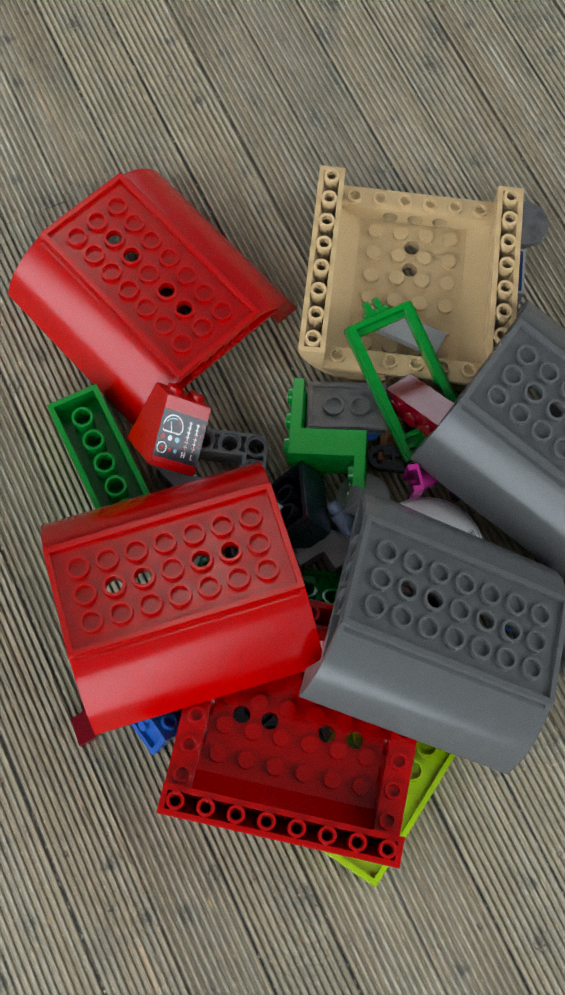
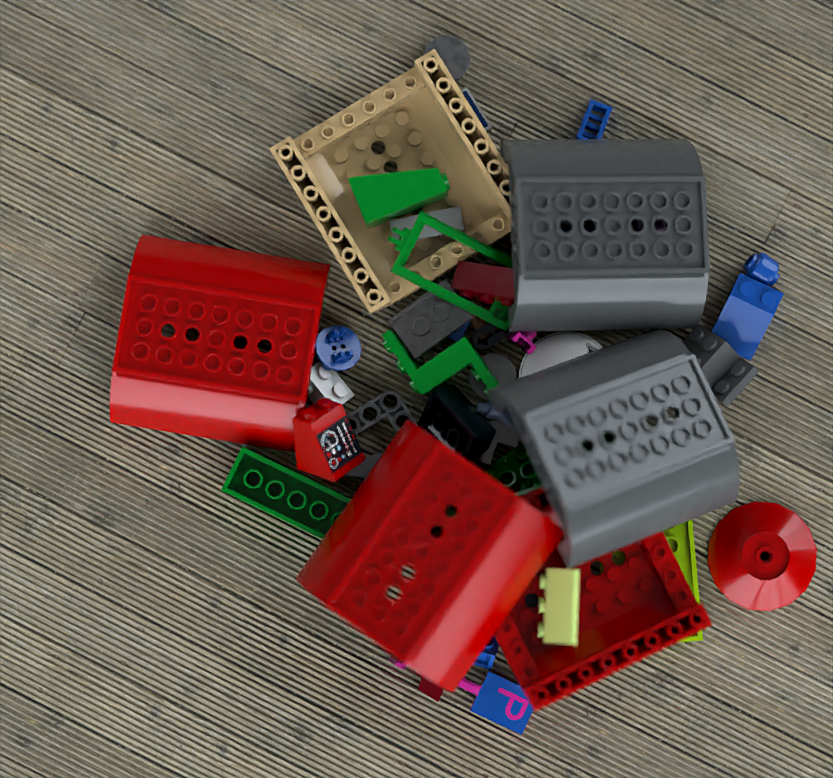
camera: 30 degrees left, 15 degrees up
(133, 787) = (495, 700): none -> blue piece
(216, 390) = (328, 385): none -> white bracket
(241, 381) = (335, 337): none -> blue plate
(261, 733) = (559, 606): none -> yellowish green slope
(401, 276) = (397, 193): none -> green slope
(464, 856) = (737, 563): none -> red dish

